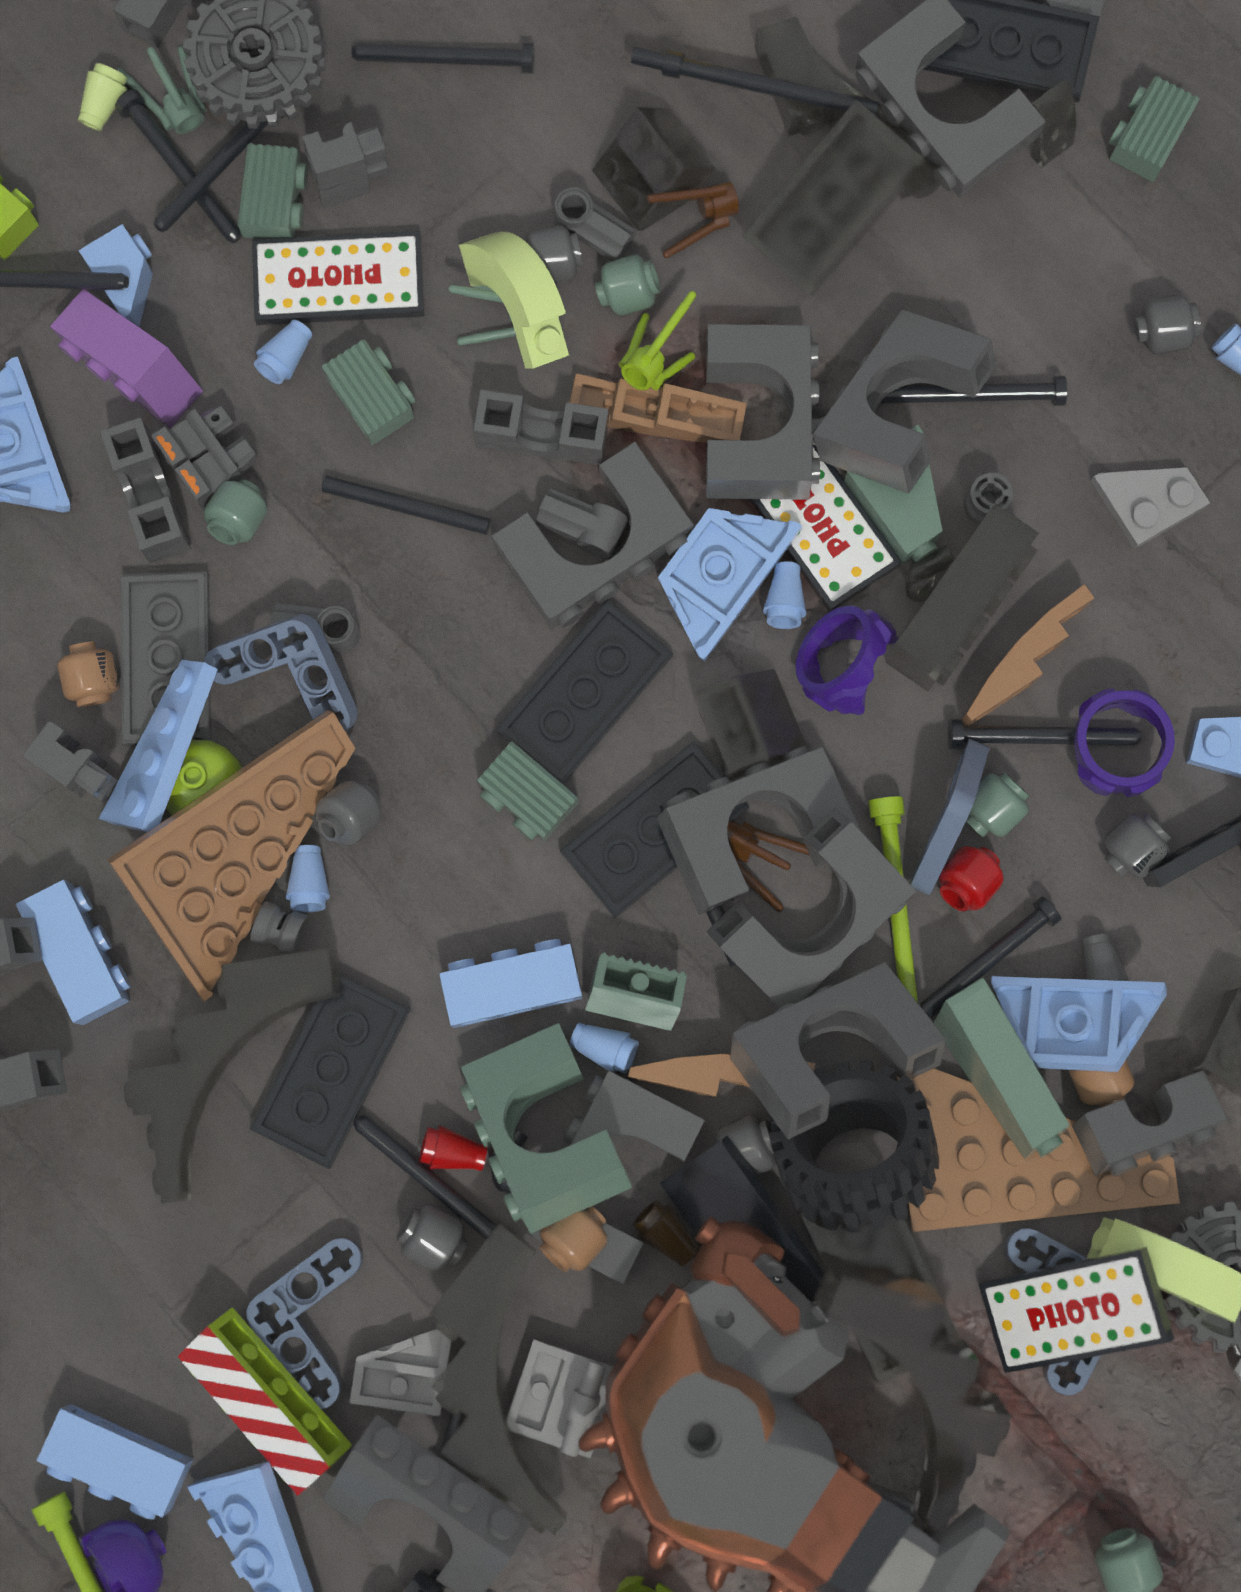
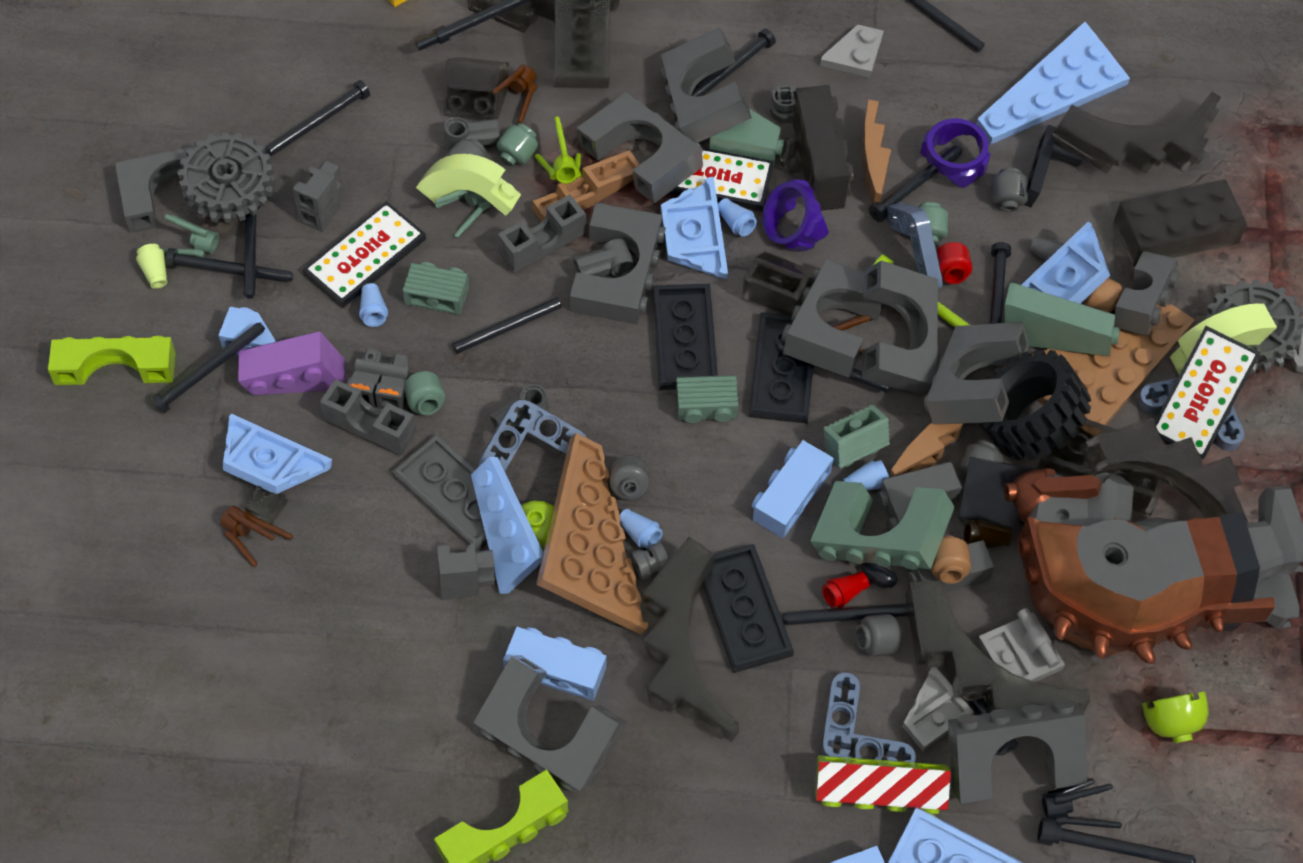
camera: 45 degrees left, 20 degrees down
(88, 674) = (425, 527): medium nougat head -> none
(272, 192) = (291, 240): sand green brick -> none

